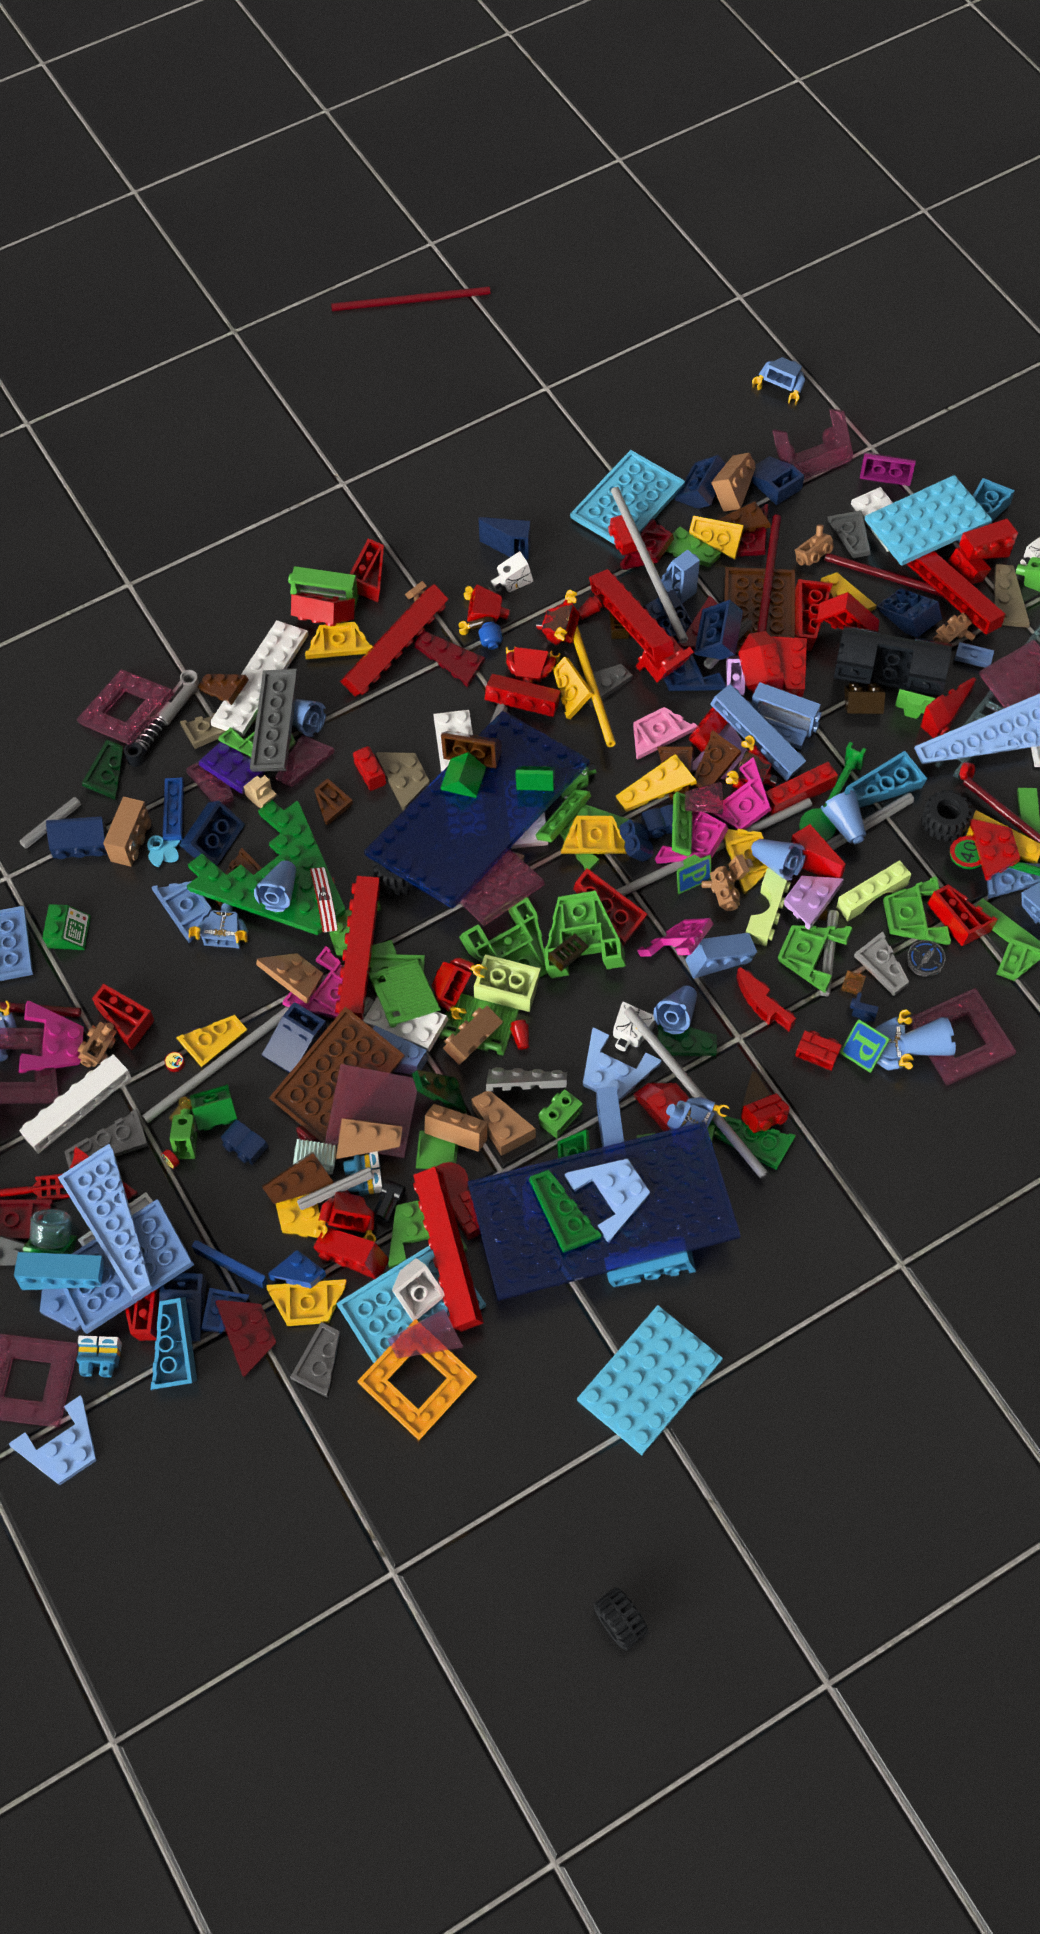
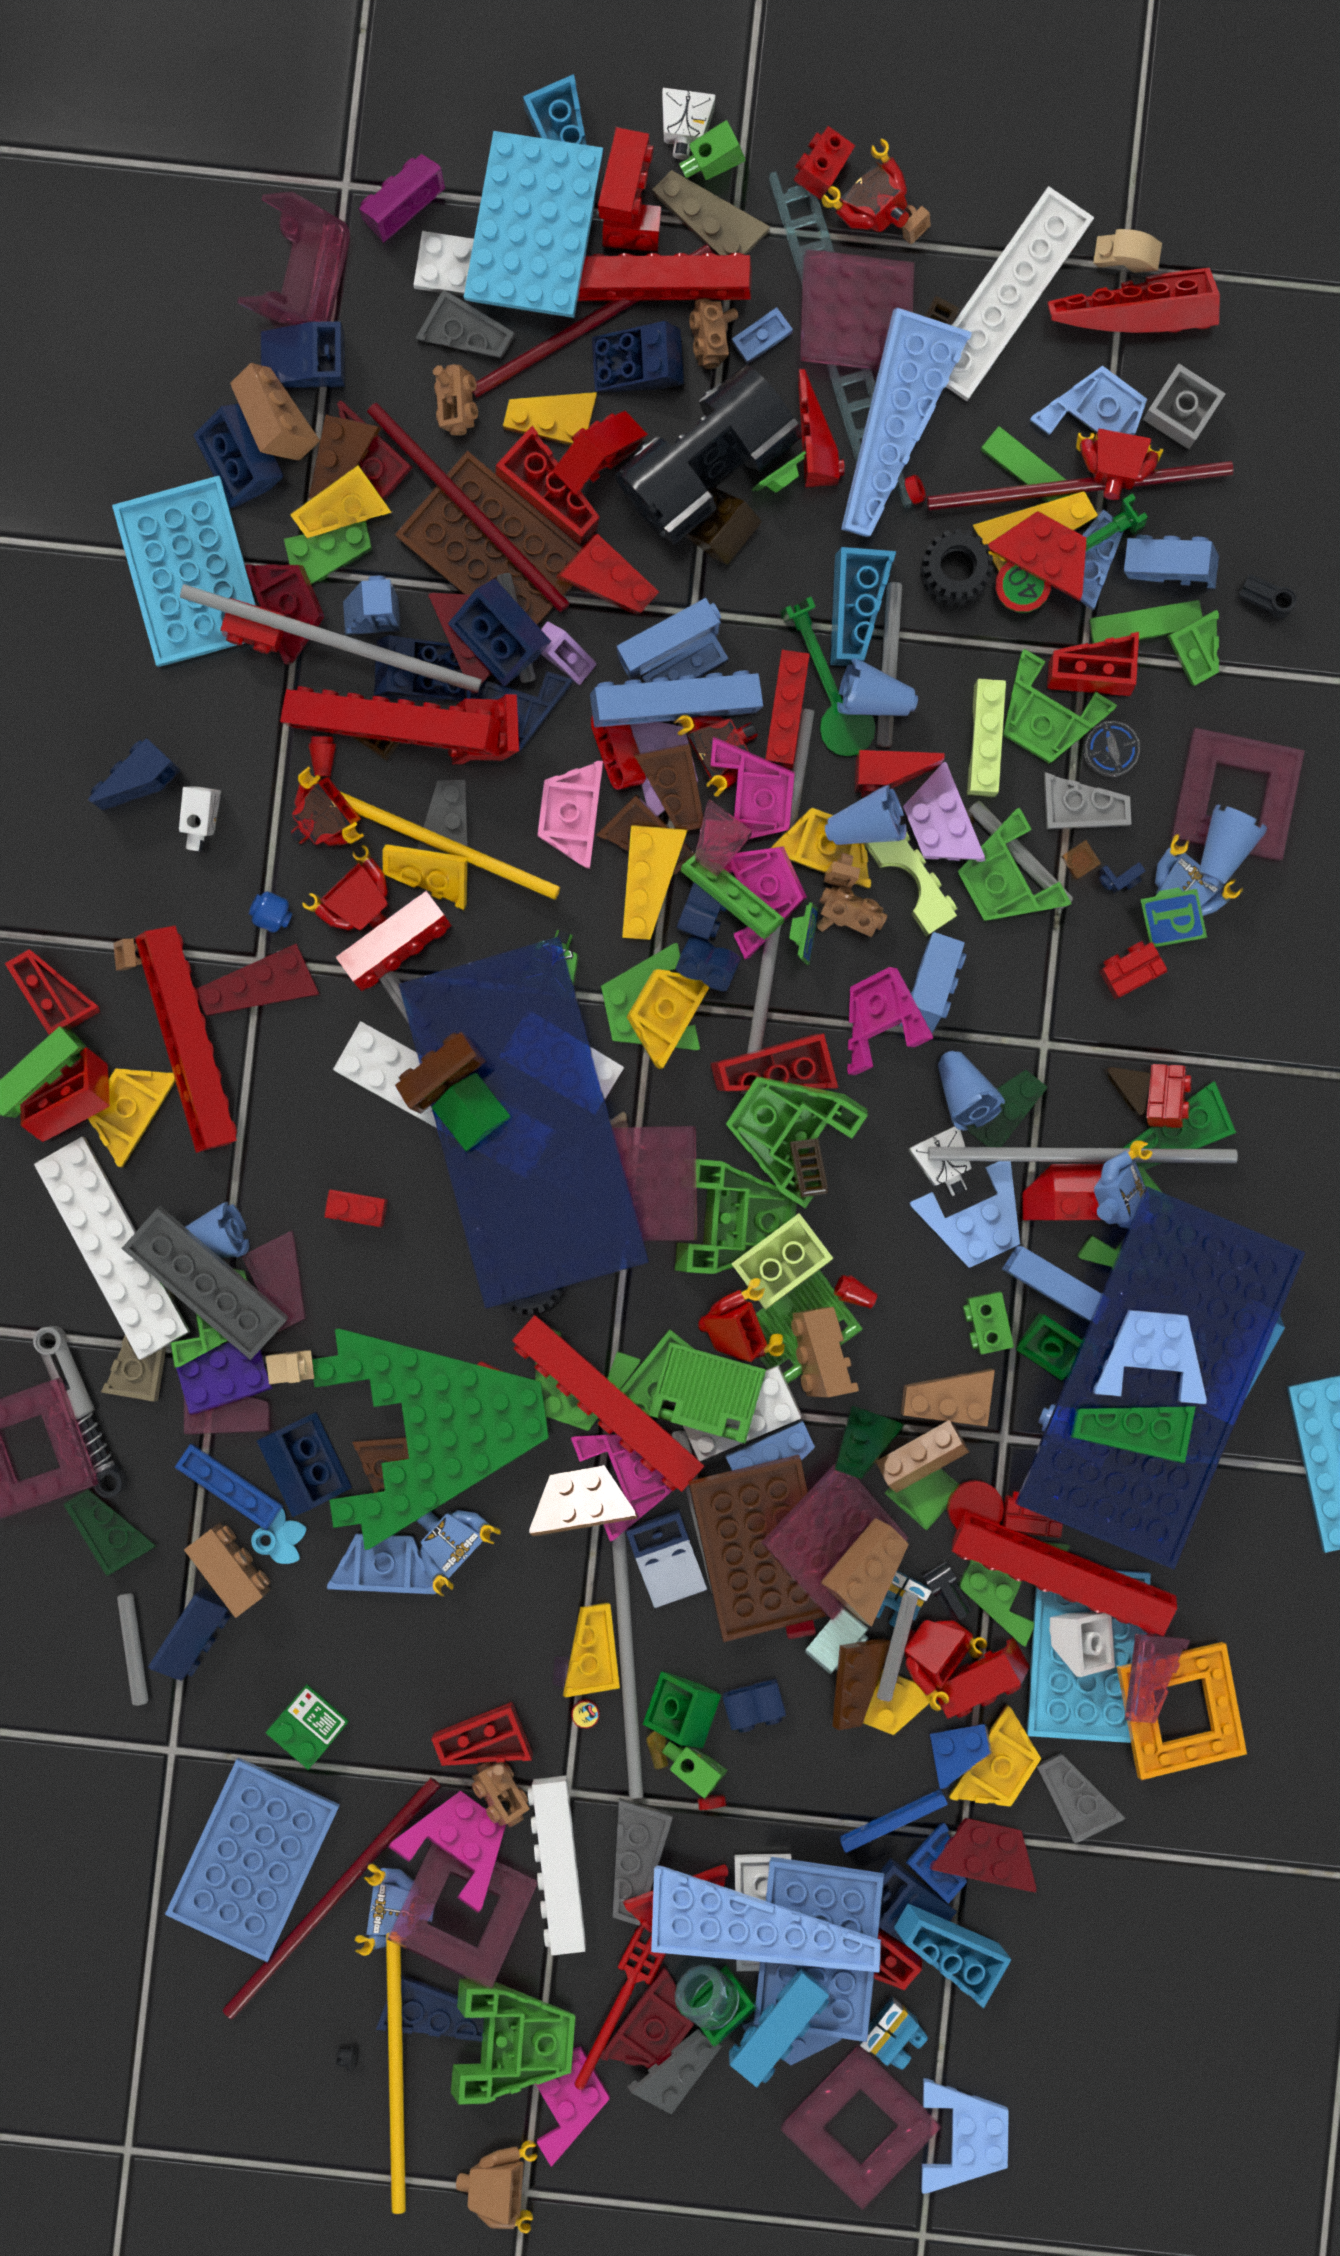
camera: 55 degrees left, 25 degrees up
(223, 686) = (96, 1307): reddish brown wing -> none
(277, 887) = (459, 1446): medium blue cone -> none
(324, 899) = (510, 1399): sticker -> none
(331, 800) = (365, 1285): reddish brown wing -> none
(404, 775) = (395, 1170): dark tan wing -> none
(483, 608) = (221, 889): red torso -> none
(525, 1079) = (908, 1345): light grey wing -> none
(535, 778) = (538, 1023): green slope -> none
(563, 815) = (606, 1024): bright green tile -> none
(758, 998) = (1013, 984): red slope -> none
(761, 661) = (583, 615): red wedge -> none
(784, 374) = (146, 202): medium blue torso -> none

